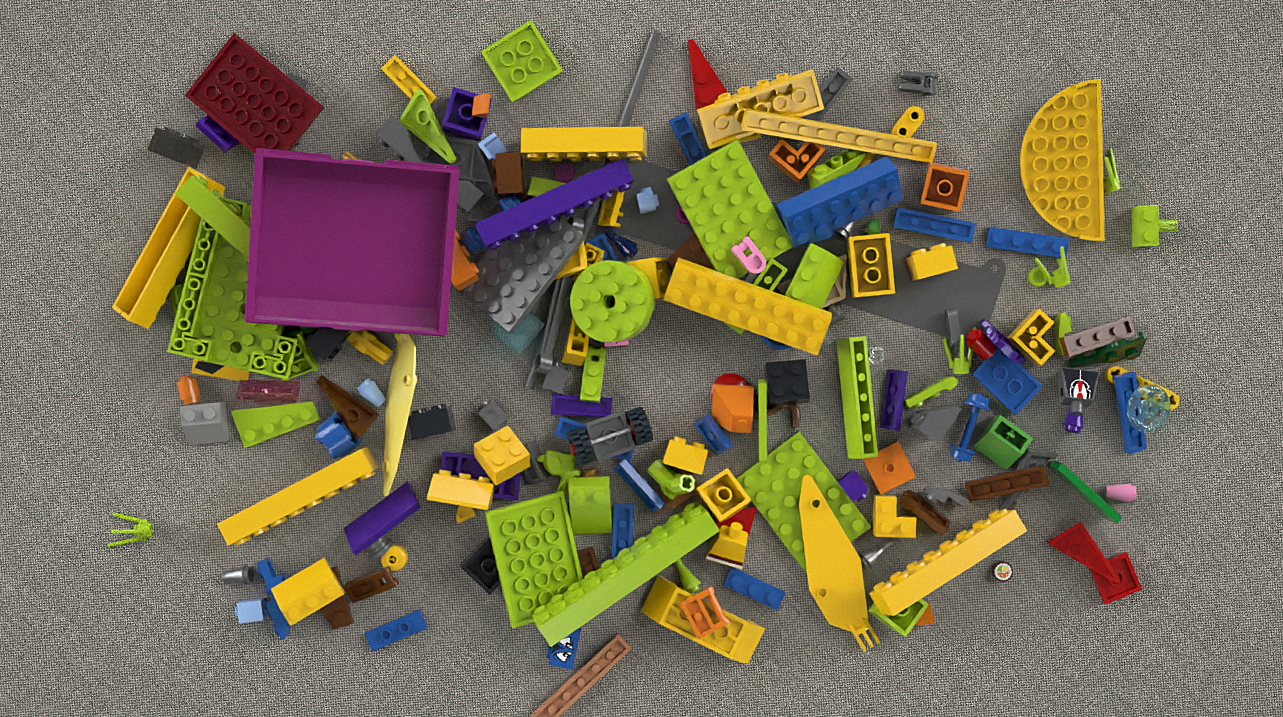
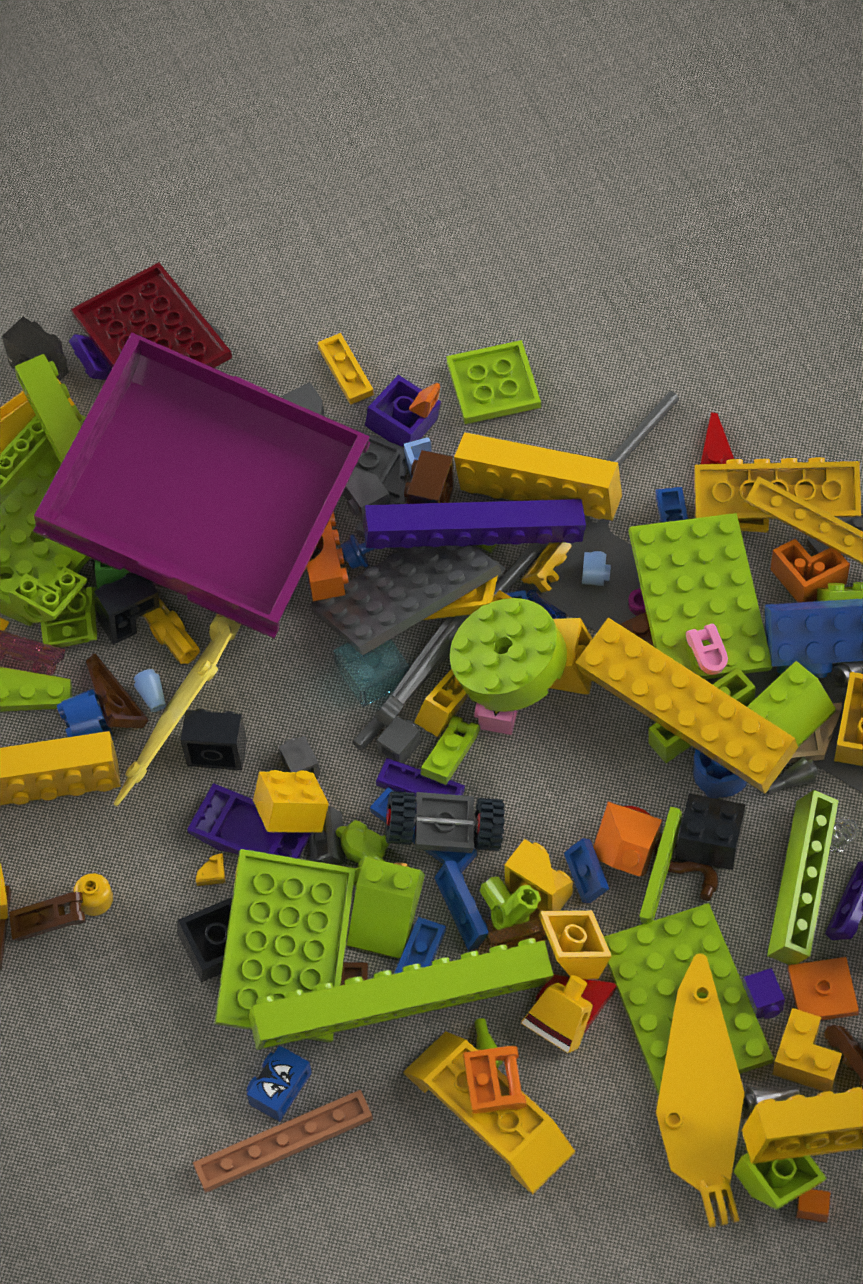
camera: 20 degrees right, 30 degrees down
(378, 548) = (74, 868): dark grey wheel -> none
(381, 518) = (98, 837): dark purple tile -> none
(396, 630) = (54, 994): blue plate -> none
(423, 123) = (345, 403): lime wing -> none
(461, 490) = (216, 826): yellow slope -> none
(754, 588) = (577, 1093): blue plate -> none

